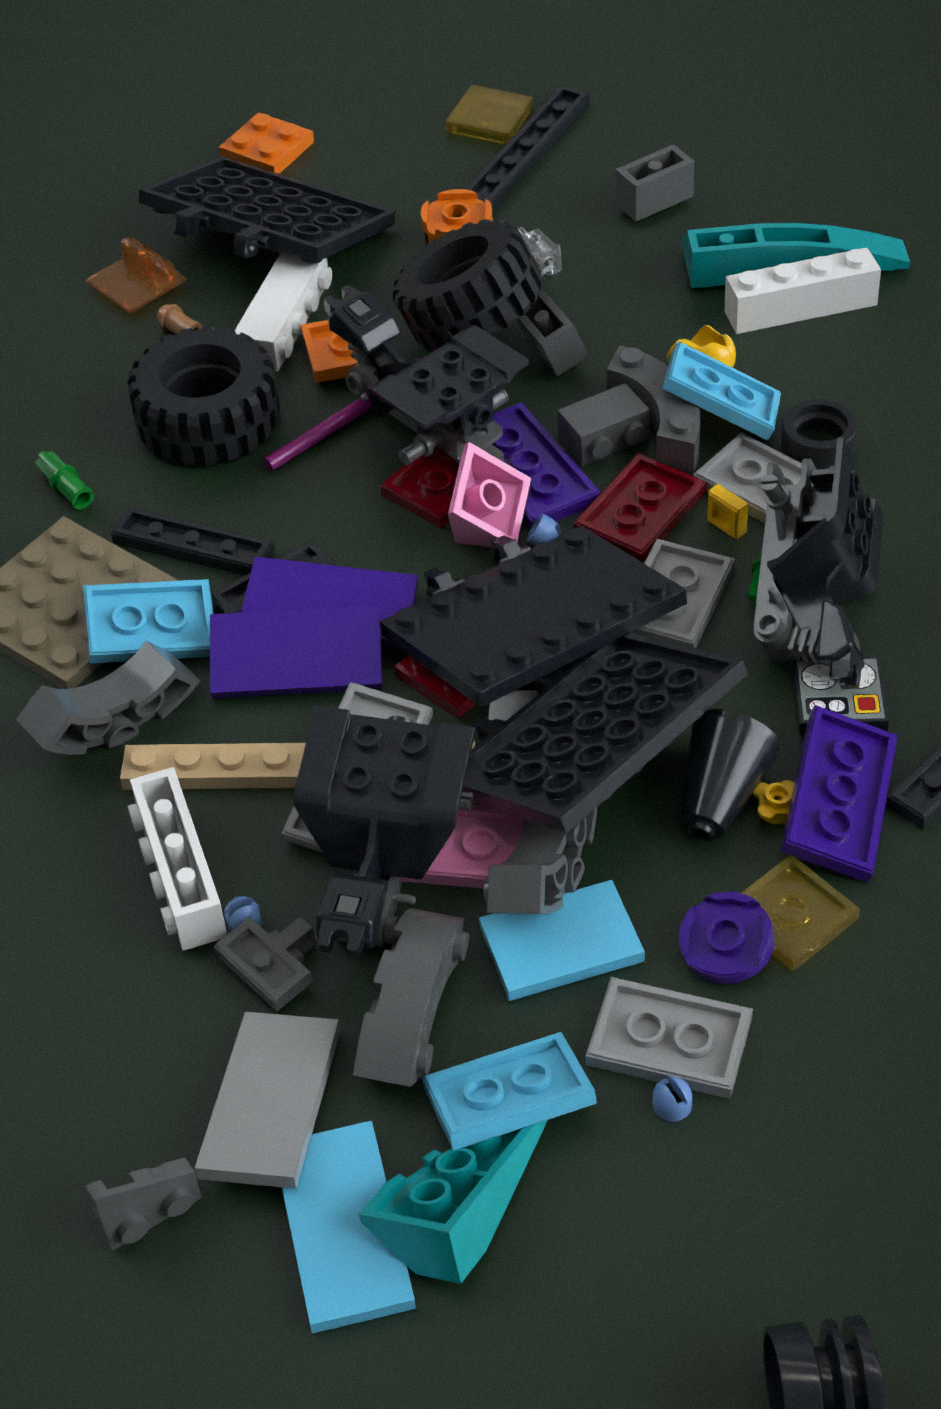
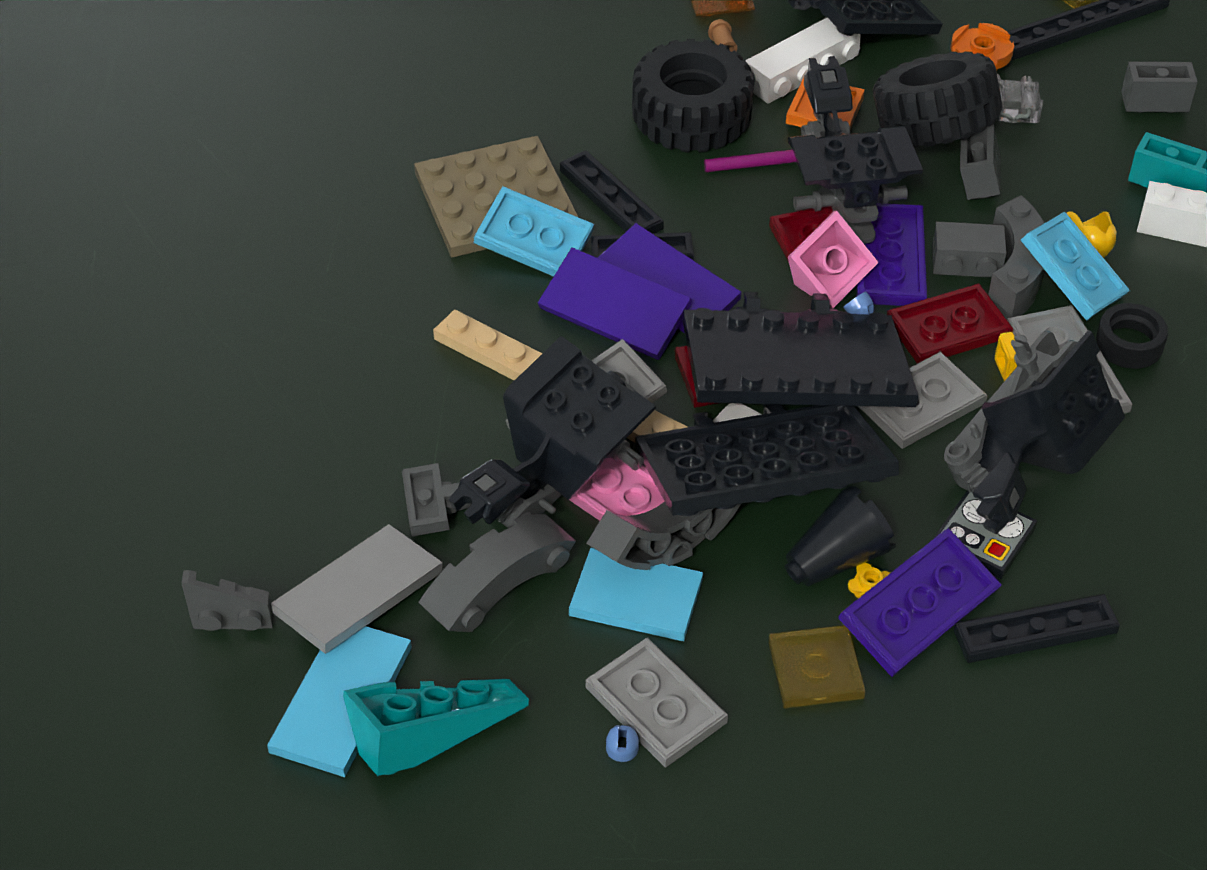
camera: 30 degrees right, 0 degrees up
(64, 479) = (558, 111): green axle -> none
(109, 708) = (461, 279): dark grey brick -> none
(179, 860) = (421, 400): white brick -> none
(239, 910) = (445, 459): medium blue hinge -> none
(508, 1090) = (513, 671): medium azure tile -> none
(726, 938) = (750, 656): dark purple tile -> none

